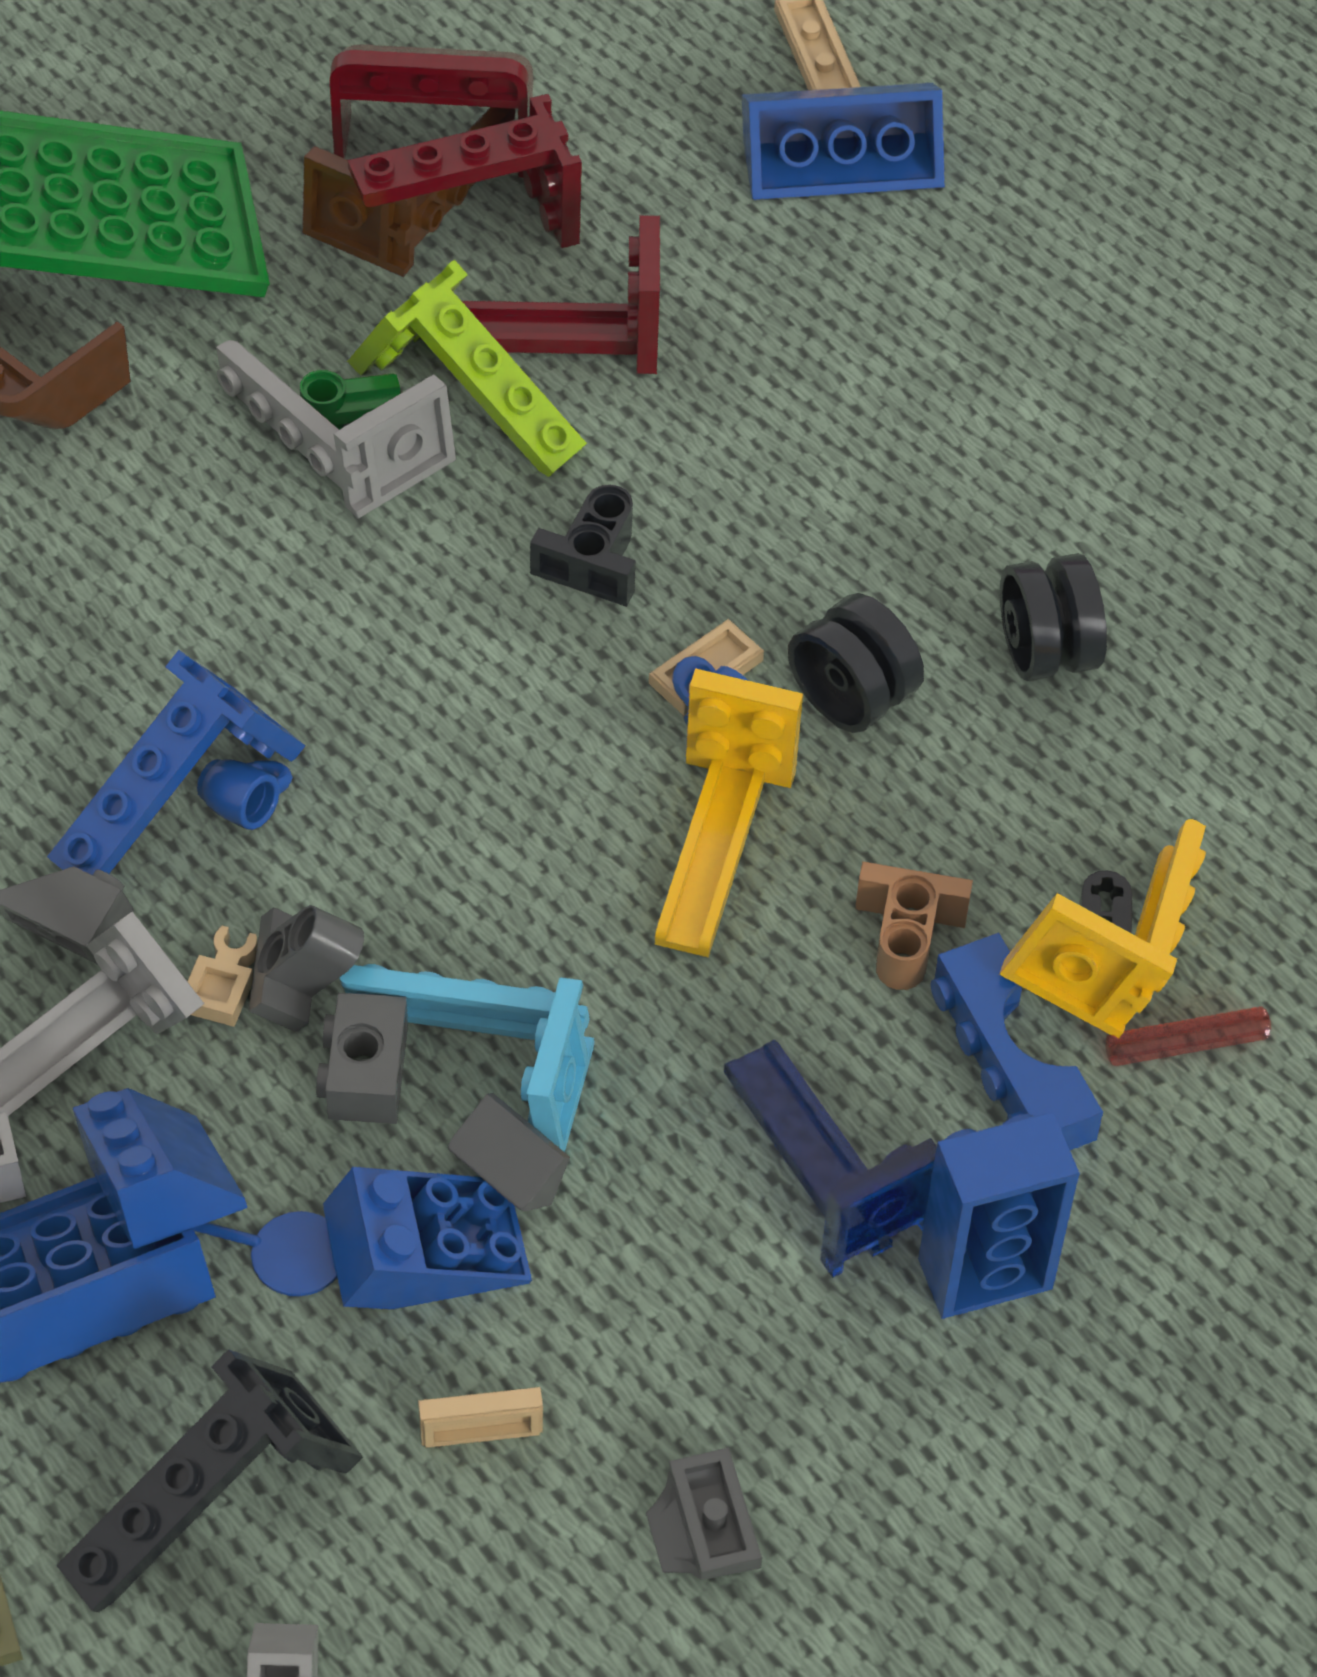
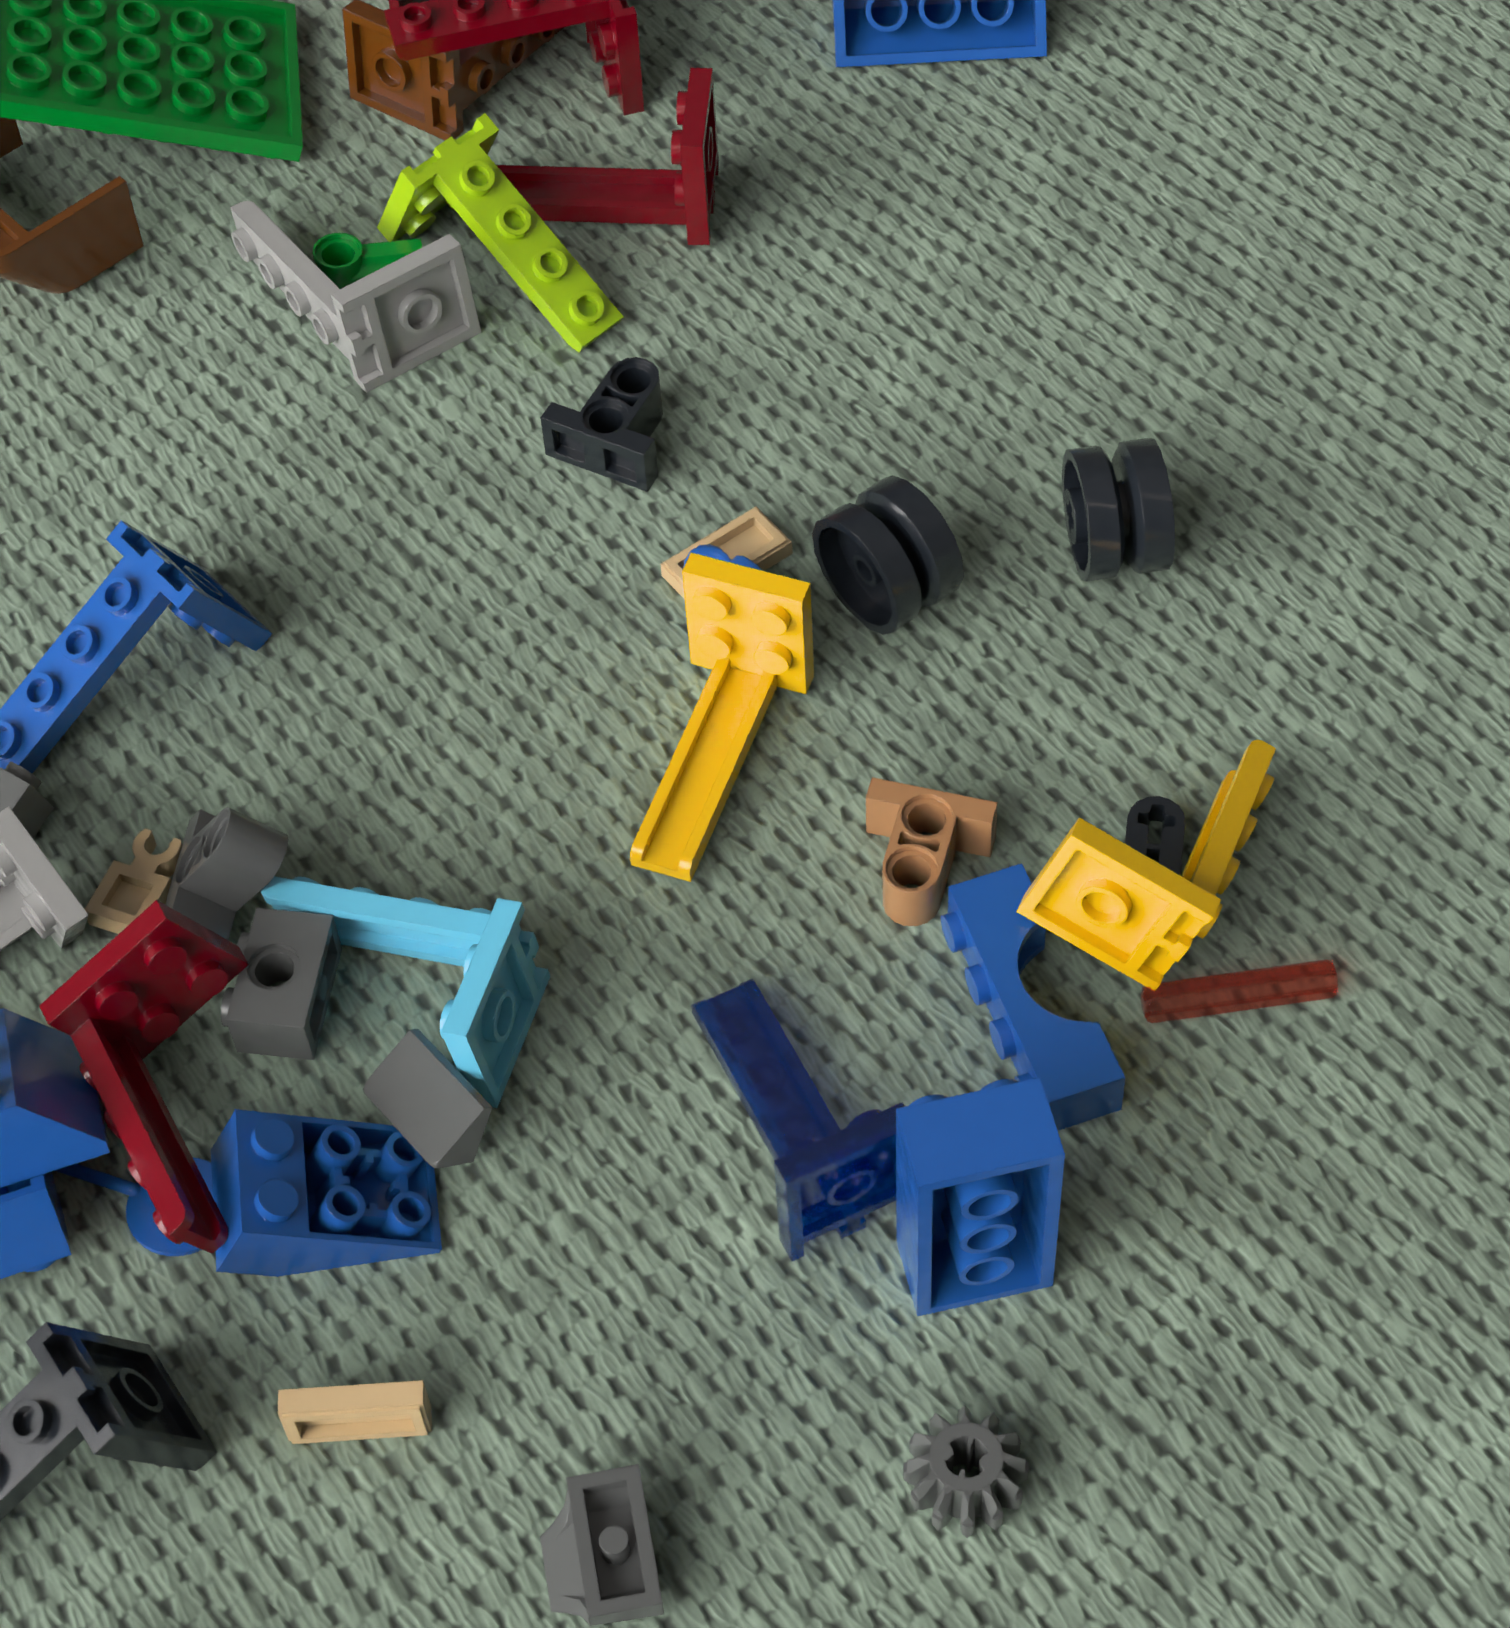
camera: 10 degrees right, 0 degrees up
(233, 1087) = (117, 1015): none -> dark red bracket
(242, 790) = (194, 681): blue piece -> none
(992, 1460) = (961, 1496): none -> dark grey gear

